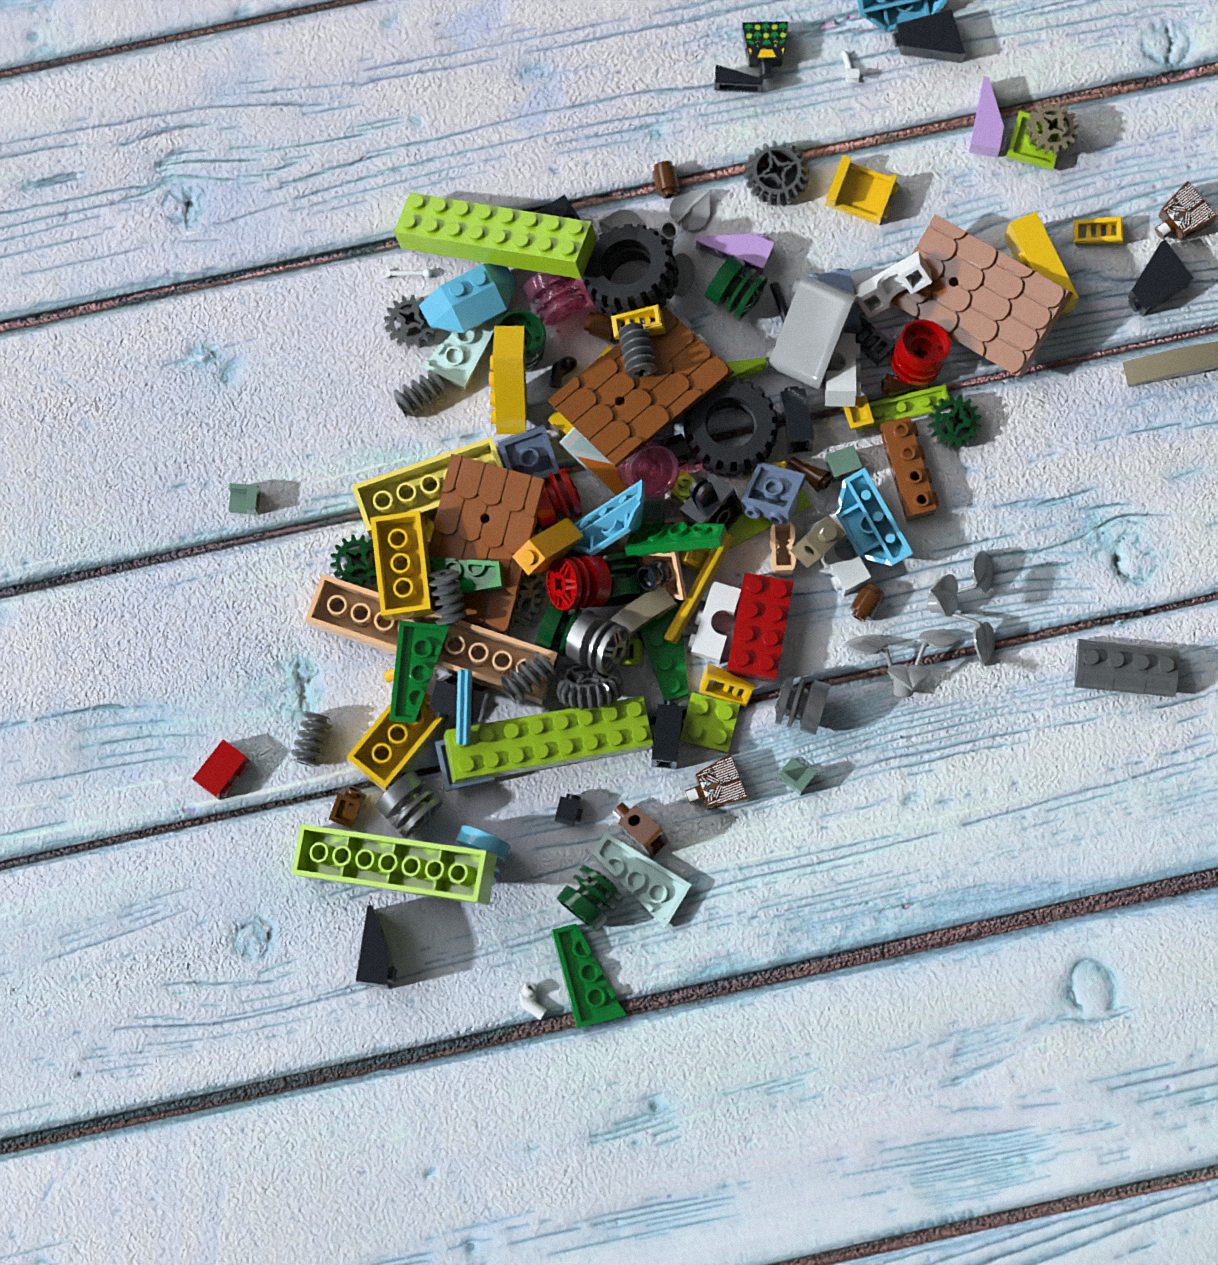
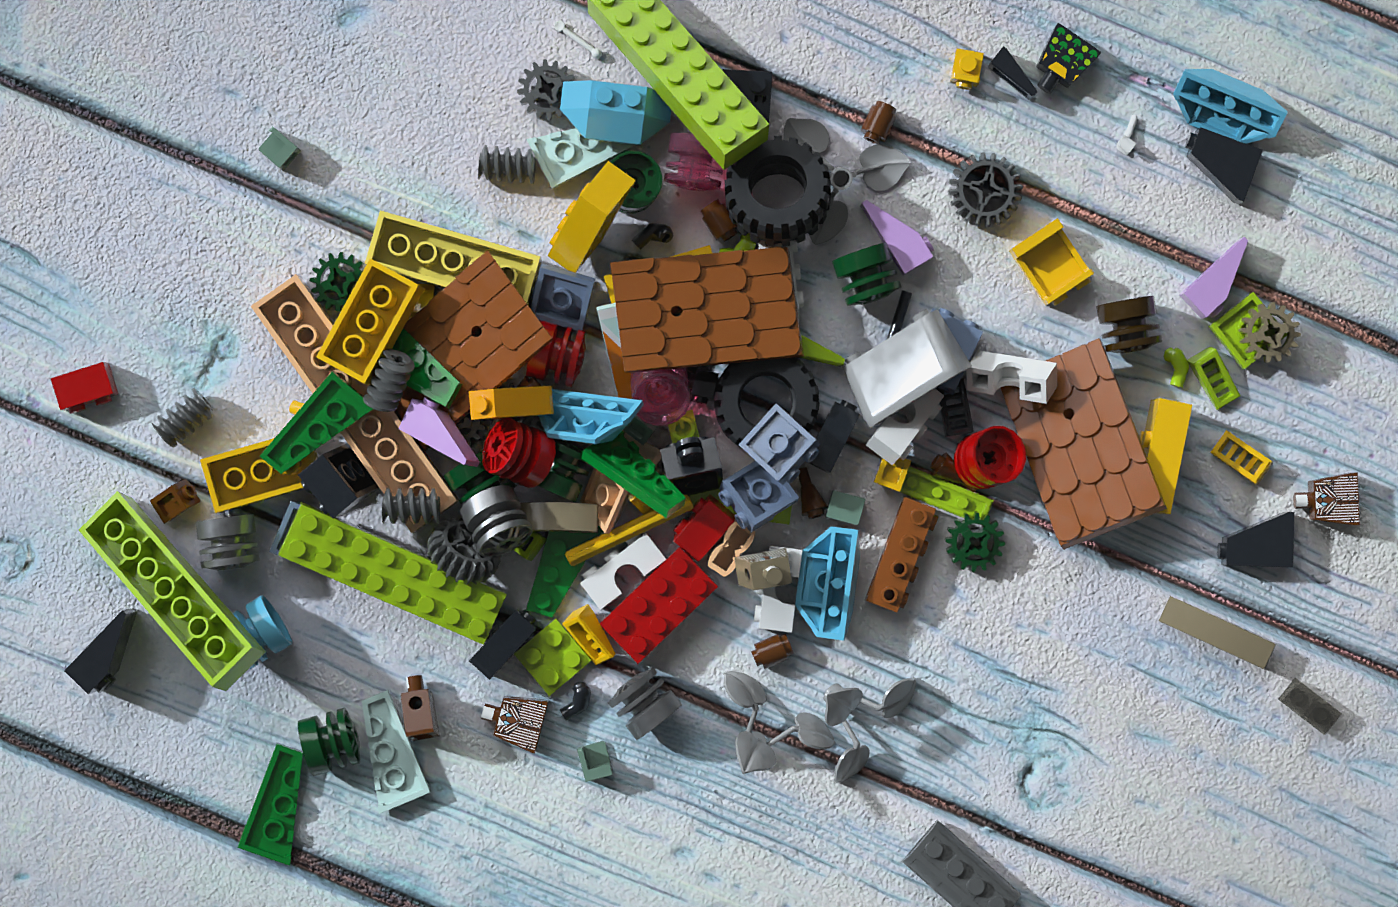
camera: 30 degrees right, 10 degrees up
(464, 700) = (329, 497): medium azure axle -> none
(502, 609) = (436, 428): none -> lavender slope
(529, 1002) = (213, 791): white arm -> none
(569, 810) = (369, 646): black plate -> none
(637, 351) = (723, 276): dark grey piece -> none
(638, 315) = (762, 244): yellow slope -> none
(654, 575) = (594, 492): black wheel -> none
(700, 101) = (966, 68): none -> yellow bracket
(751, 548) = (703, 527): none -> red brick
(754, 741) = (580, 701): none -> black arm
(764, 443) = (780, 445): none -> sand blue plate
(946, 189) = (1129, 324): none -> dark brown wheel
(1006, 198) = (1179, 364): none -> lime arm
(1033, 197) = (1212, 354): none -> lime slope

